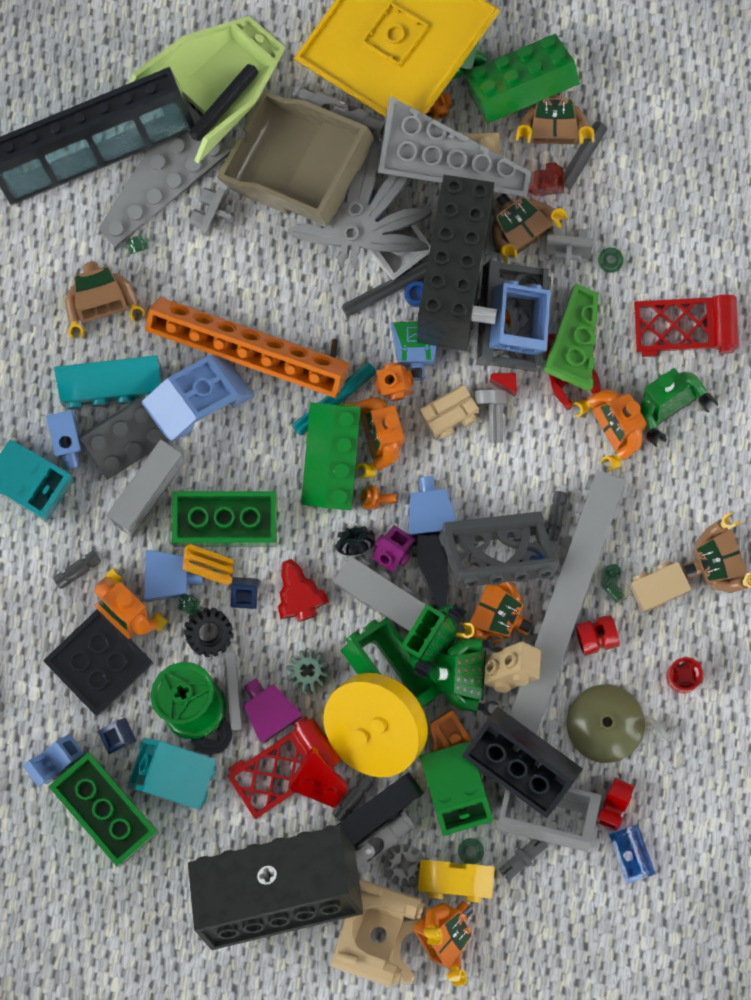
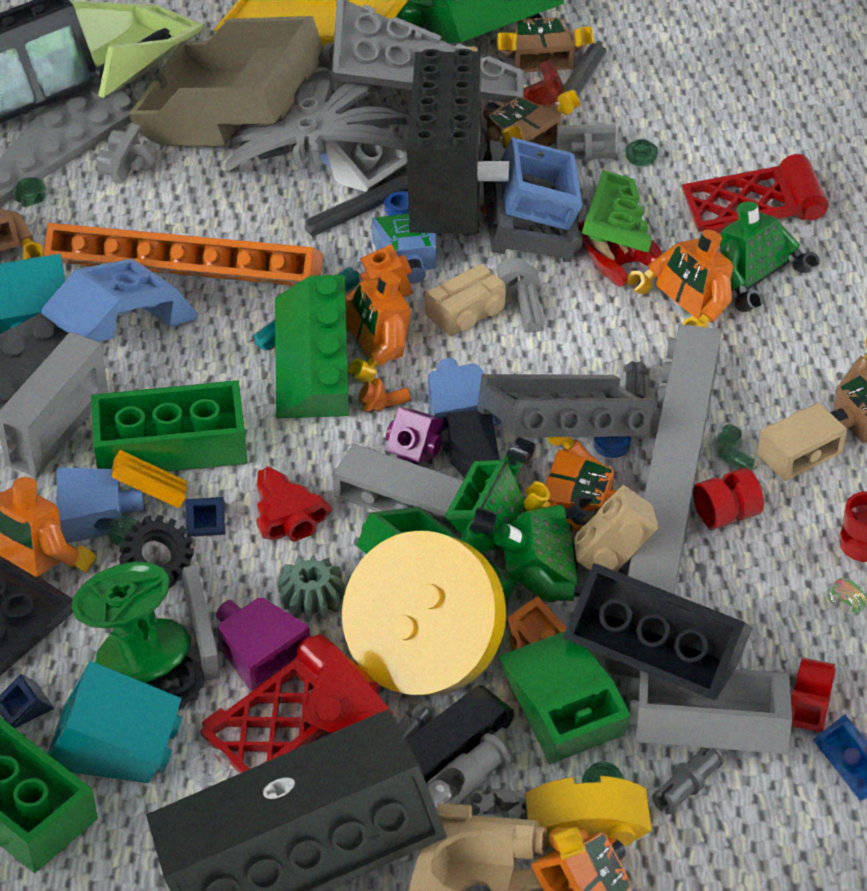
camera: 10 degrees left, 35 degrees down
(347, 545) = (358, 435): black gear -> none
(505, 381) = (538, 258): red slope -> none
(589, 733) = (774, 600): olive dish -> none

